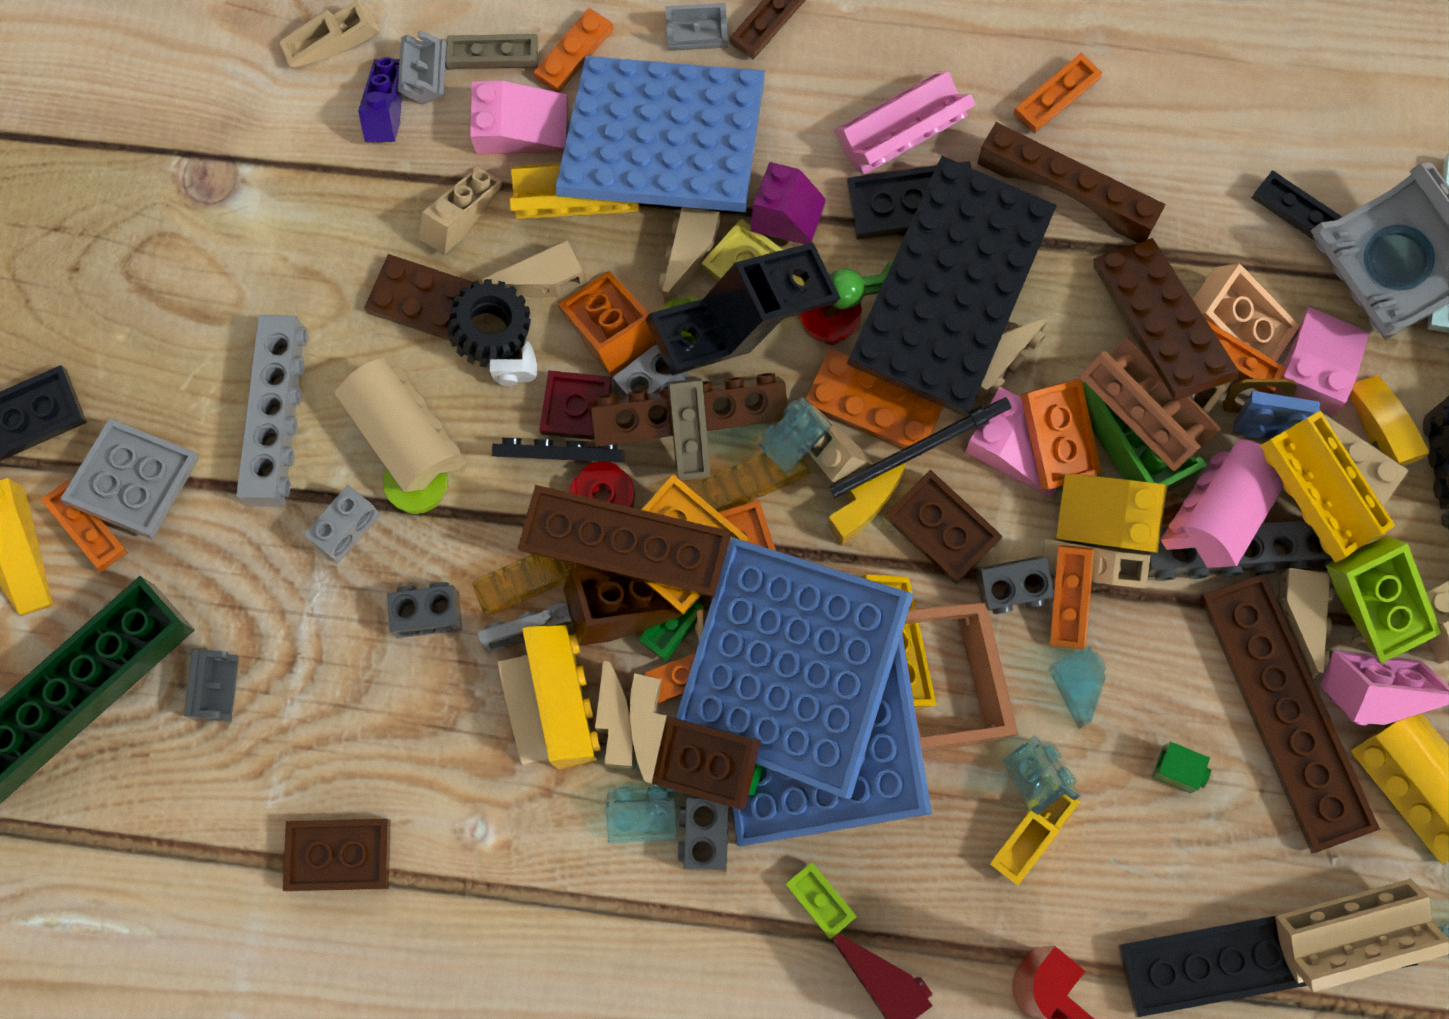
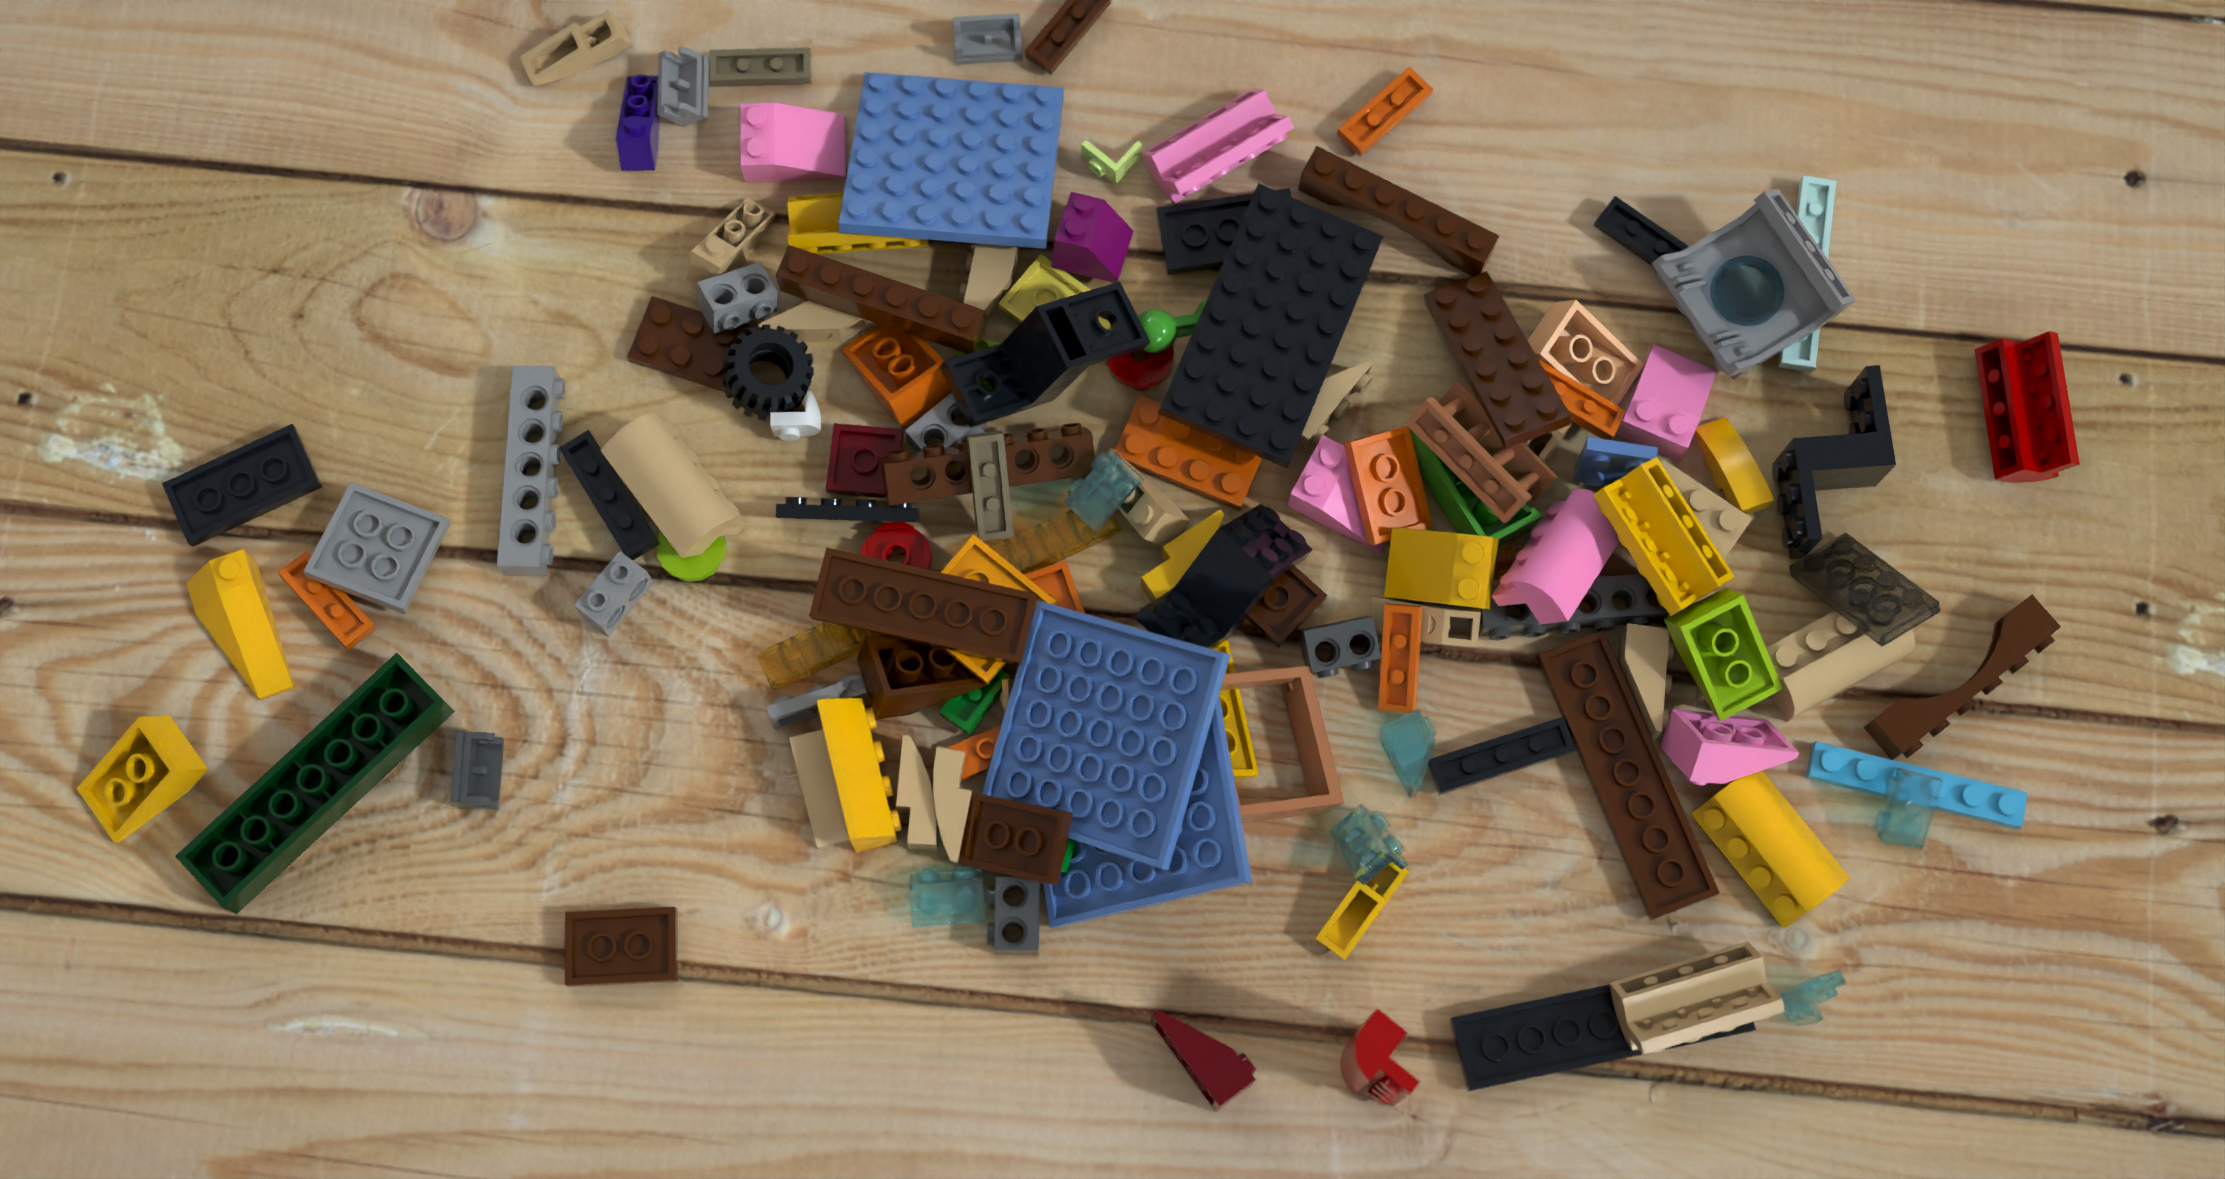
camera: 10 degrees left, 0 degrees up
(342, 435) = (609, 496): none -> black plate
(424, 619) = (707, 695): dark grey brick -> none
(463, 255) = (737, 297): none -> light grey brick
(572, 49) = (850, 64): orange plate -> none
(593, 257) = (881, 300): none -> reddish brown brick
(799, 140) = (1104, 166): none -> yellowish green bracket
(821, 900) = (1138, 980): lime plate -> none
(908, 521) = (1226, 579): none -> black bracket
(977, 418) = (1297, 469): black bar -> none
(1167, 691) = (1501, 756): none -> black plate
(1182, 768) = (1516, 835): green brick -> none
(1231, 406) = (1569, 452): pearl gold piece -> none

